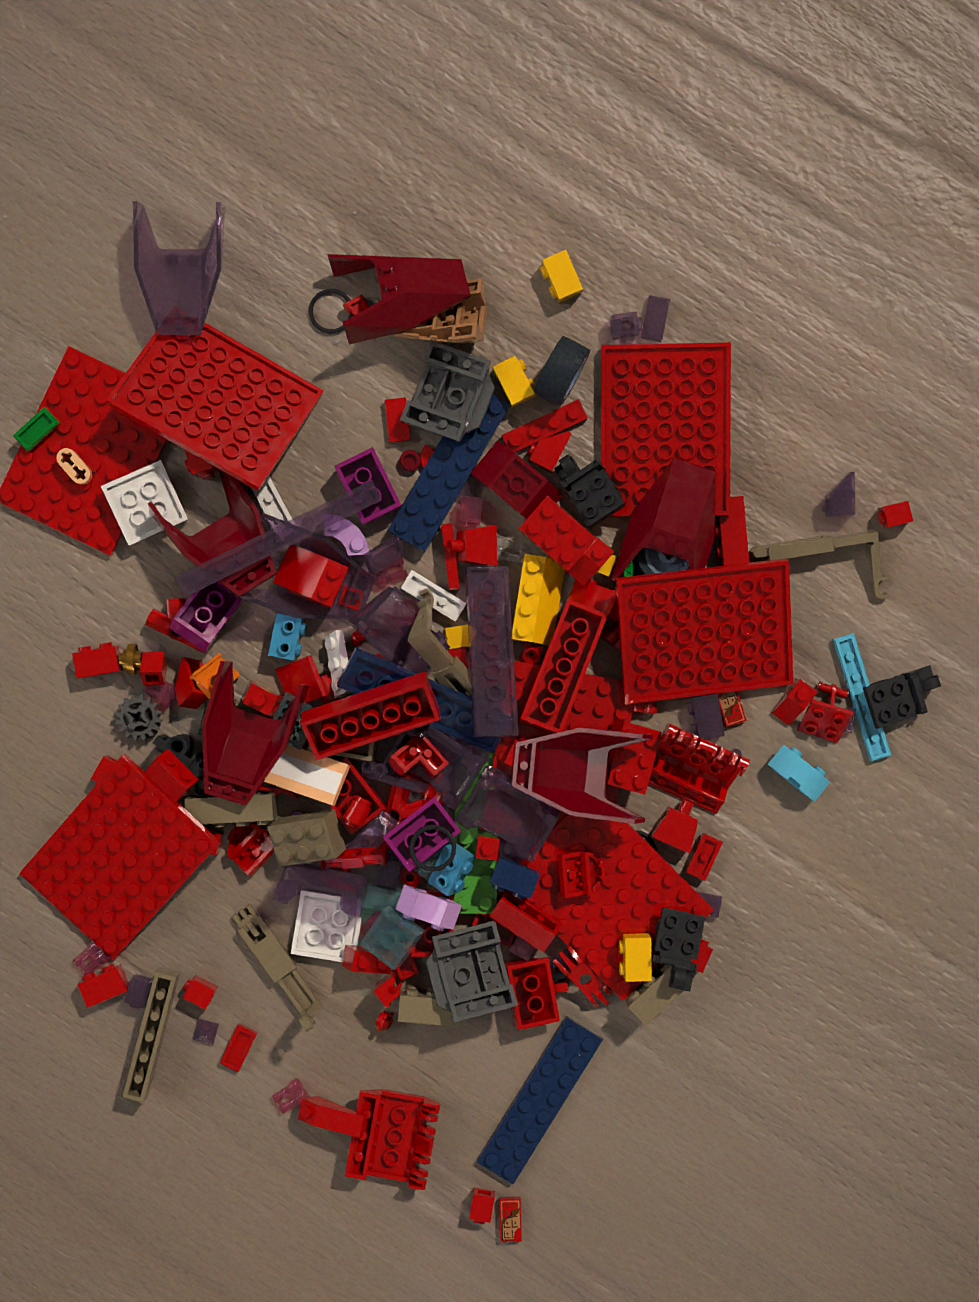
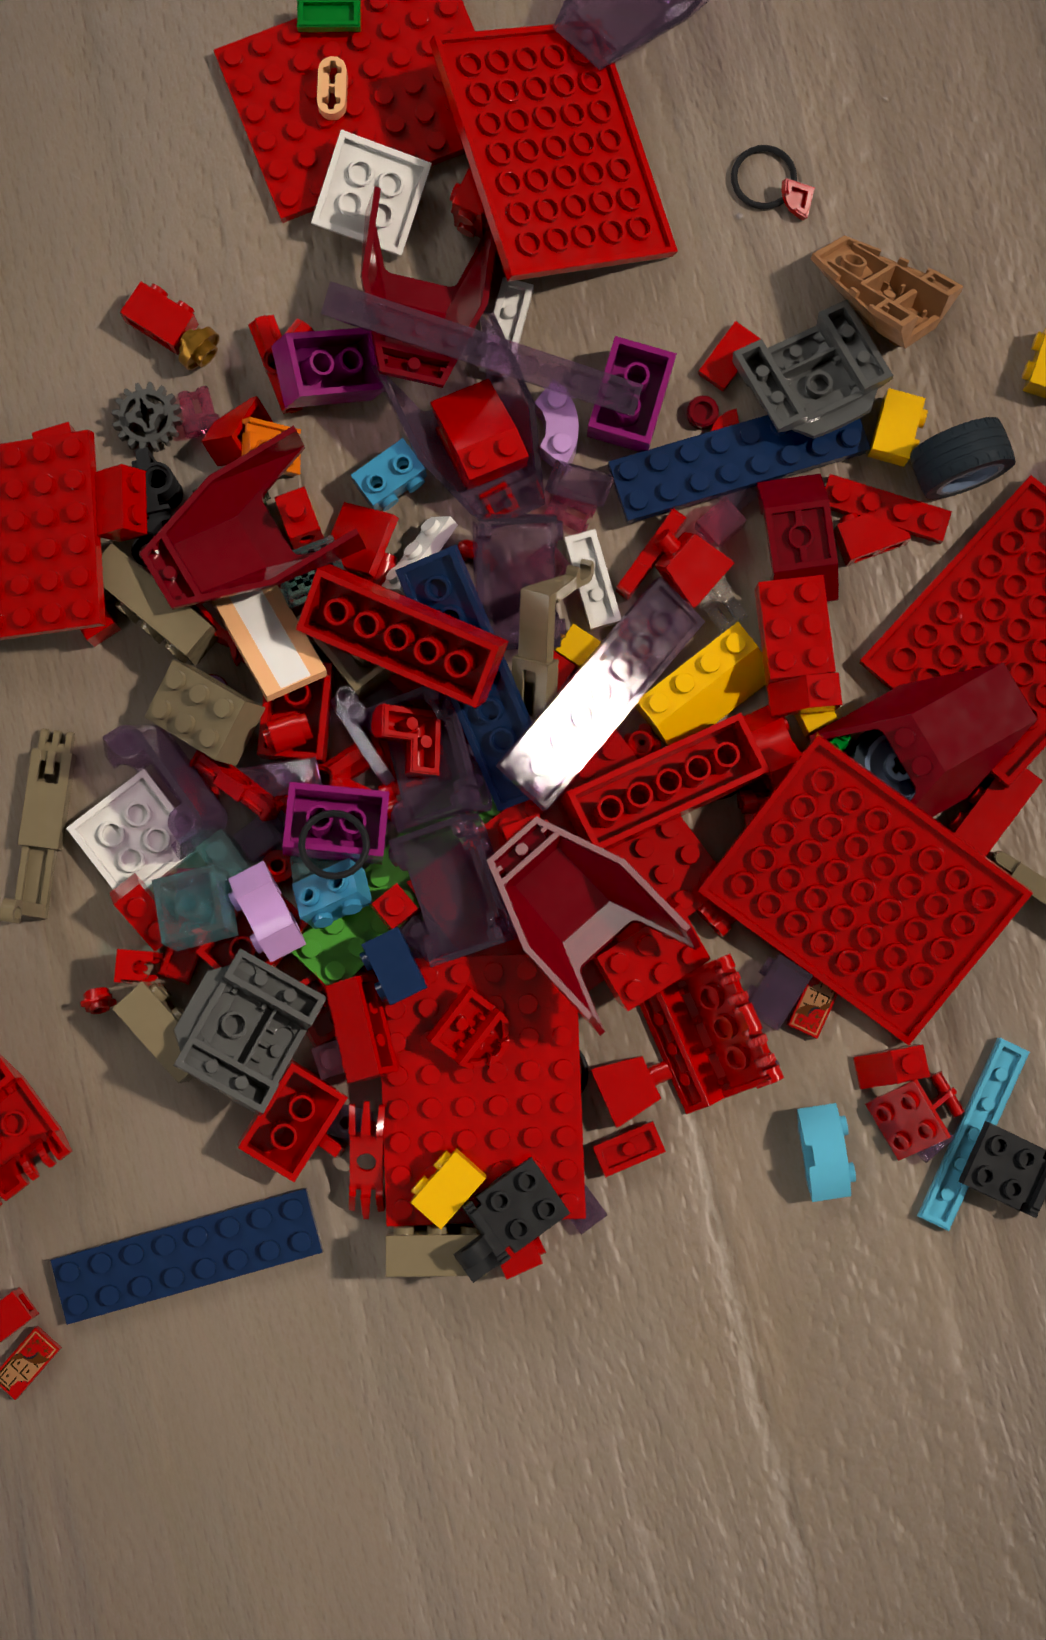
camera: 40 degrees right, 5 degrees down
(153, 668) = (212, 378): red brick -> none
(249, 847) = (132, 669): red slope -> none
(410, 291) = (869, 225): dark red windscreen -> none
(590, 490) = (875, 617): black plate -> none

